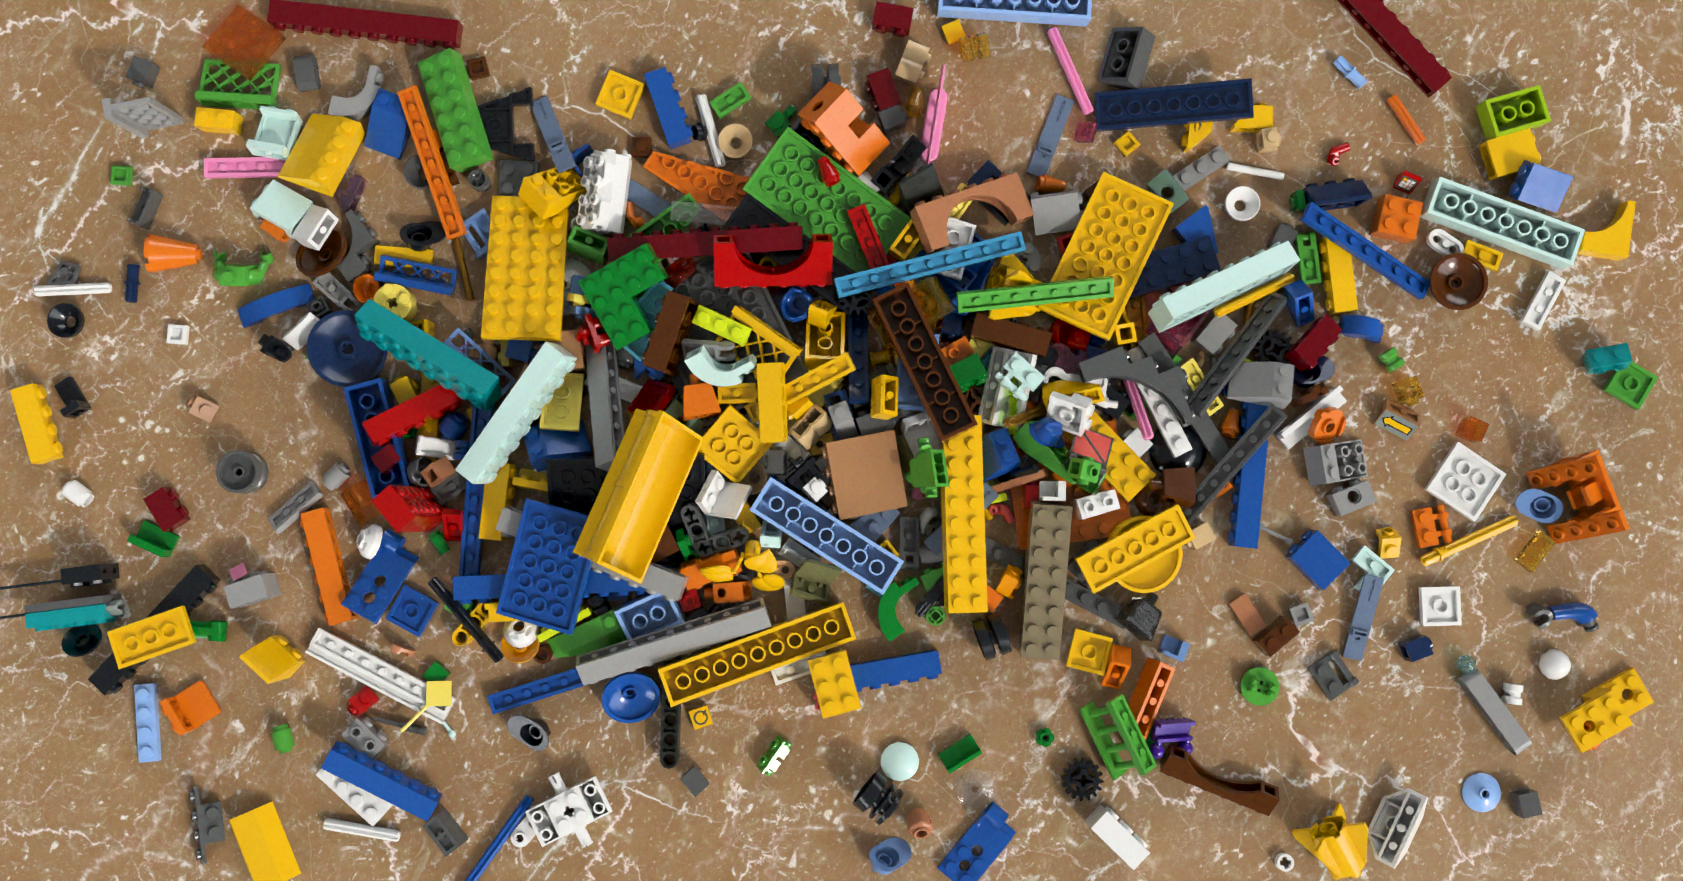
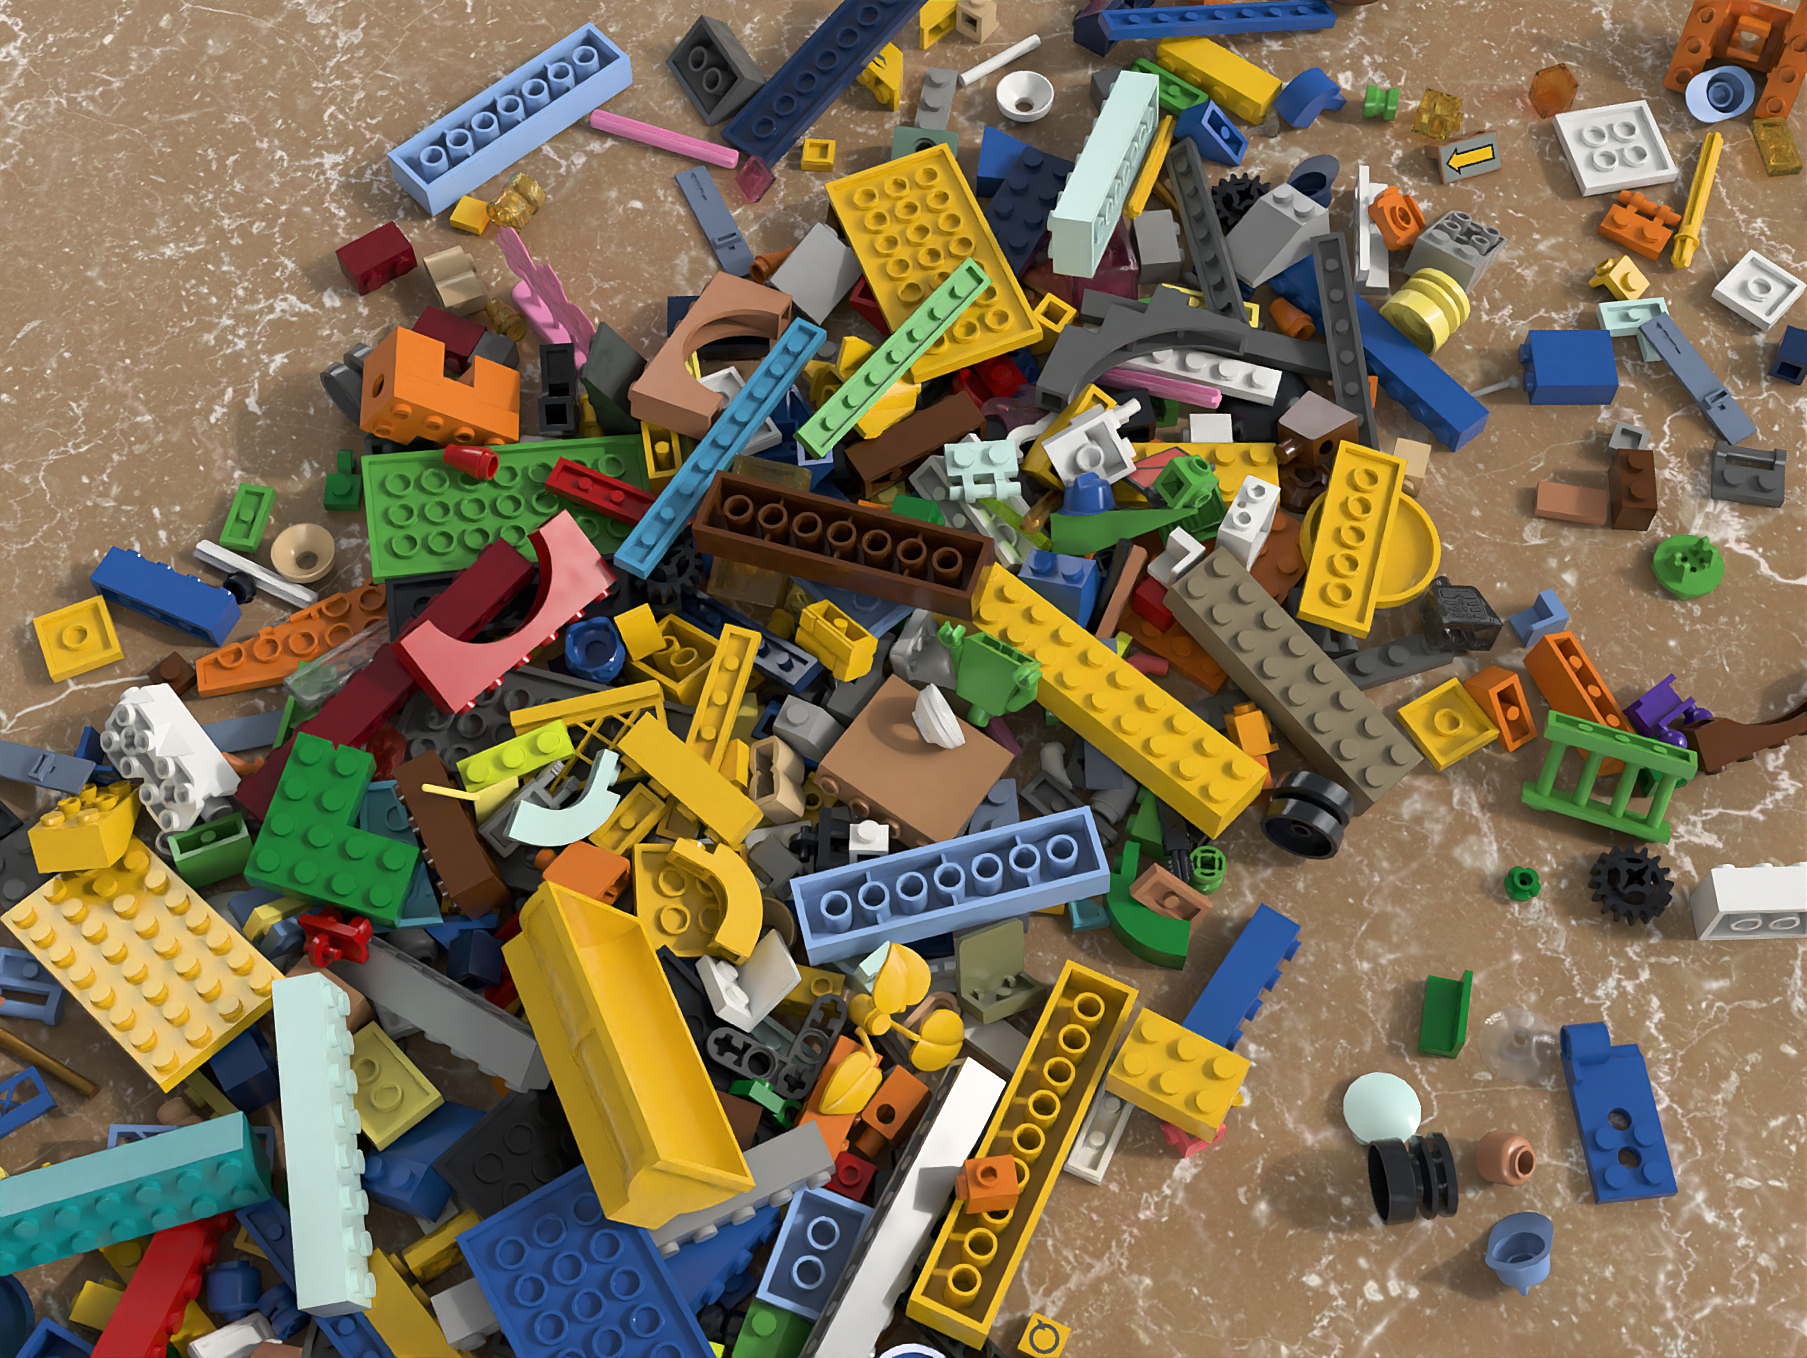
camera: 45 degrees left, 25 degrees down
(638, 387) = (475, 960): none -> dark blue brick
(690, 332) = (485, 801): none -> light yellow piece
(722, 659) = (988, 1184): none -> orange brick
(744, 468) = (736, 894): none -> yellow arch
(778, 748) = (1201, 1265): bright green hinge -> none
(887, 469) = (936, 719): none -> white piece
(907, 615) = (1169, 895): none -> nougat plate
(1285, 479) = (1427, 309): none -> light yellow wheel
(1297, 201) = (1084, 44): green plate -> none
(1304, 397) = (1343, 199): reddish brown plate -> none
(1314, 343) = (1277, 152): dark red brick -> none
(1362, 497) = (1520, 271): light grey brick -> none

